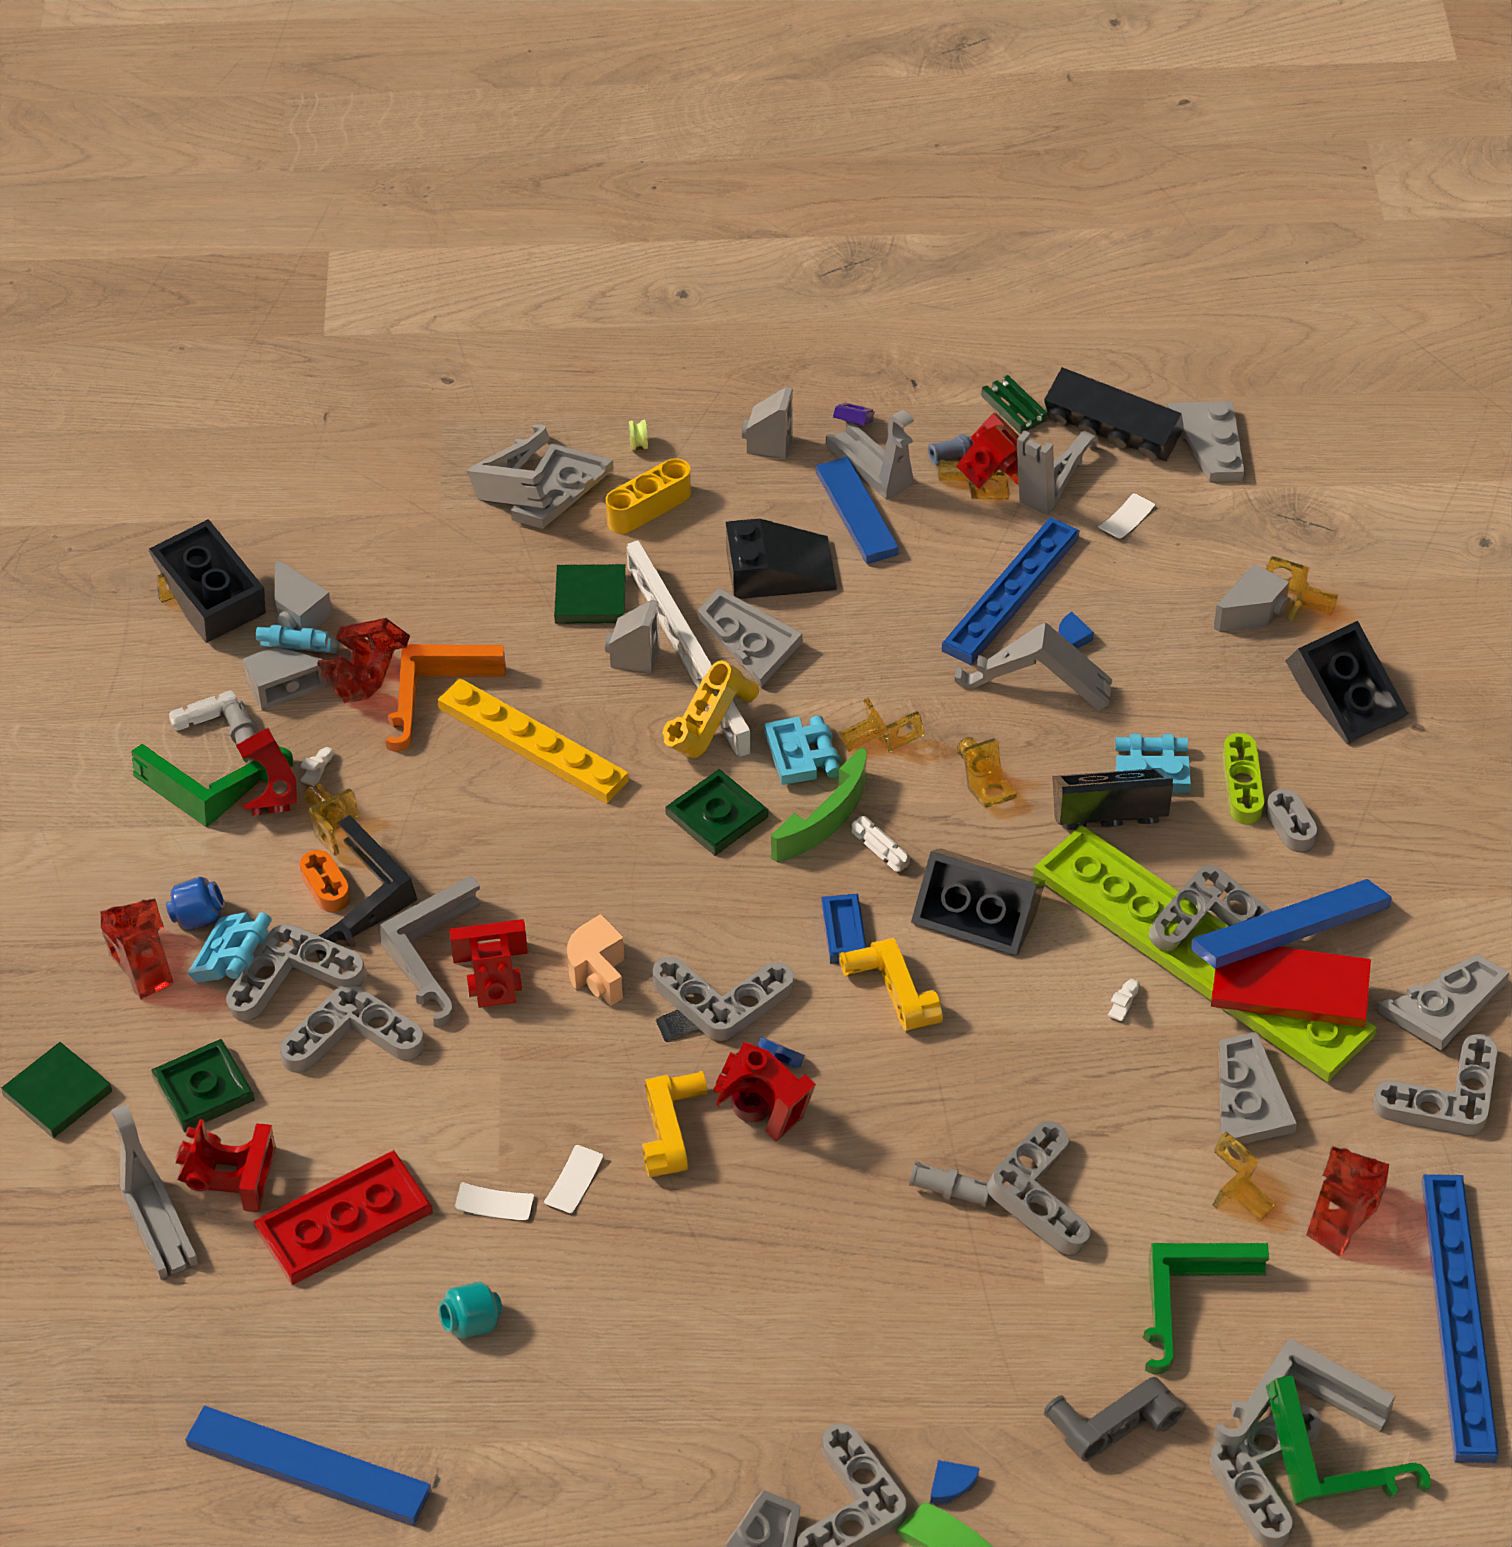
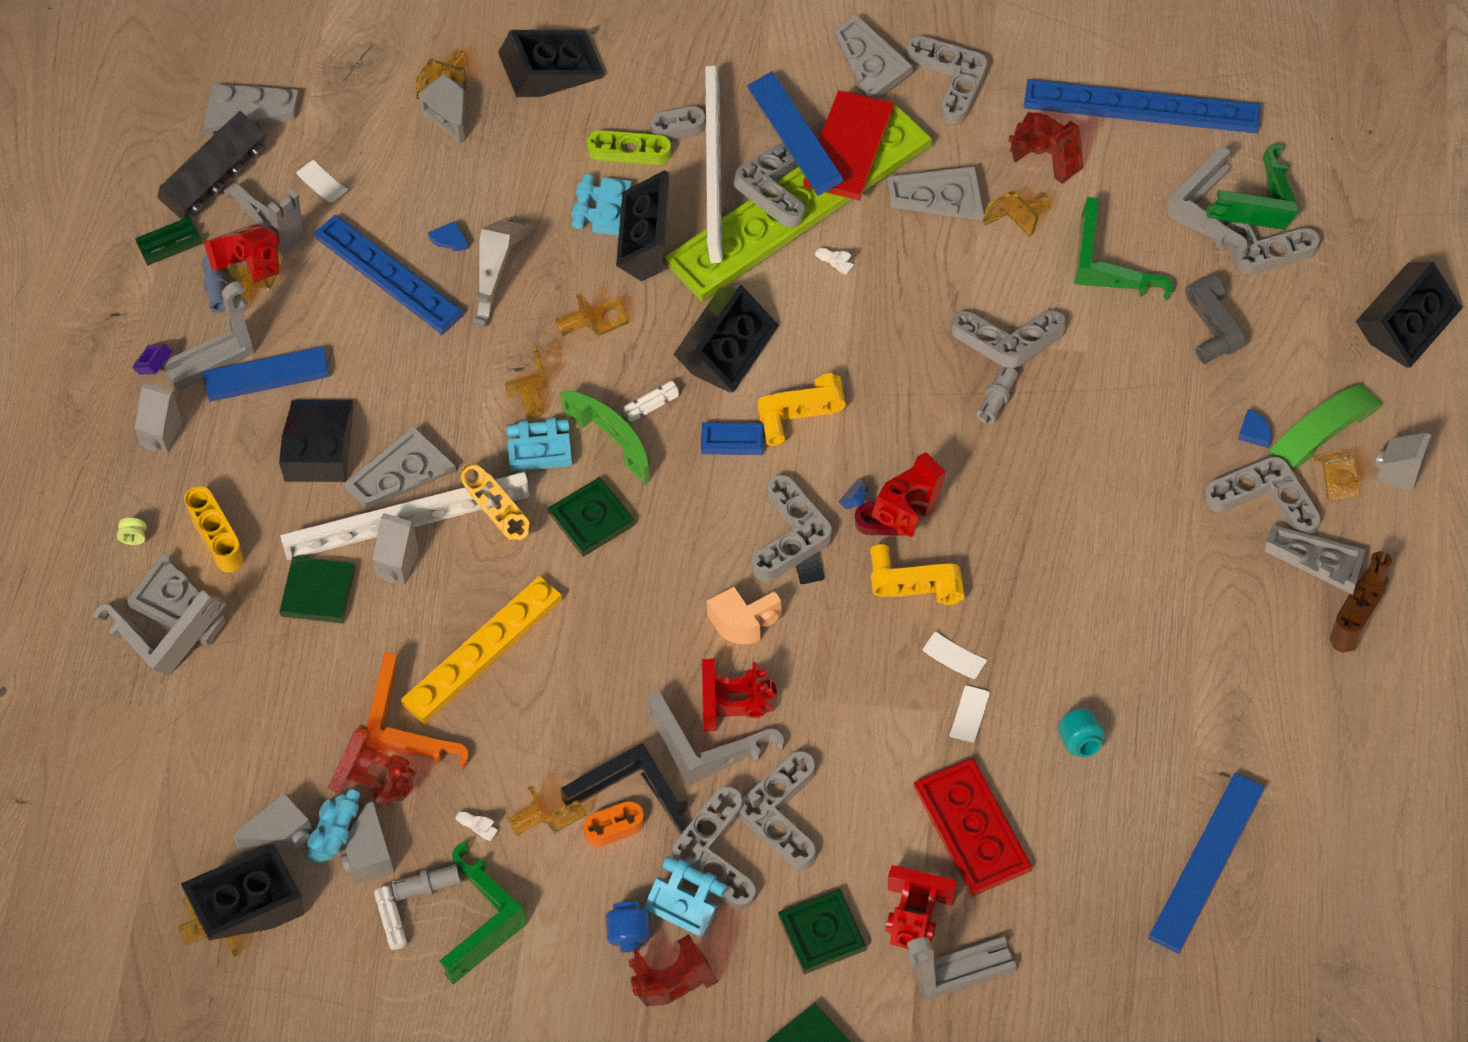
camera: 80 degrees left, 10 degrees up
(265, 750) = (500, 847): red tile -> none
(1225, 849) = (713, 165): none -> white tile

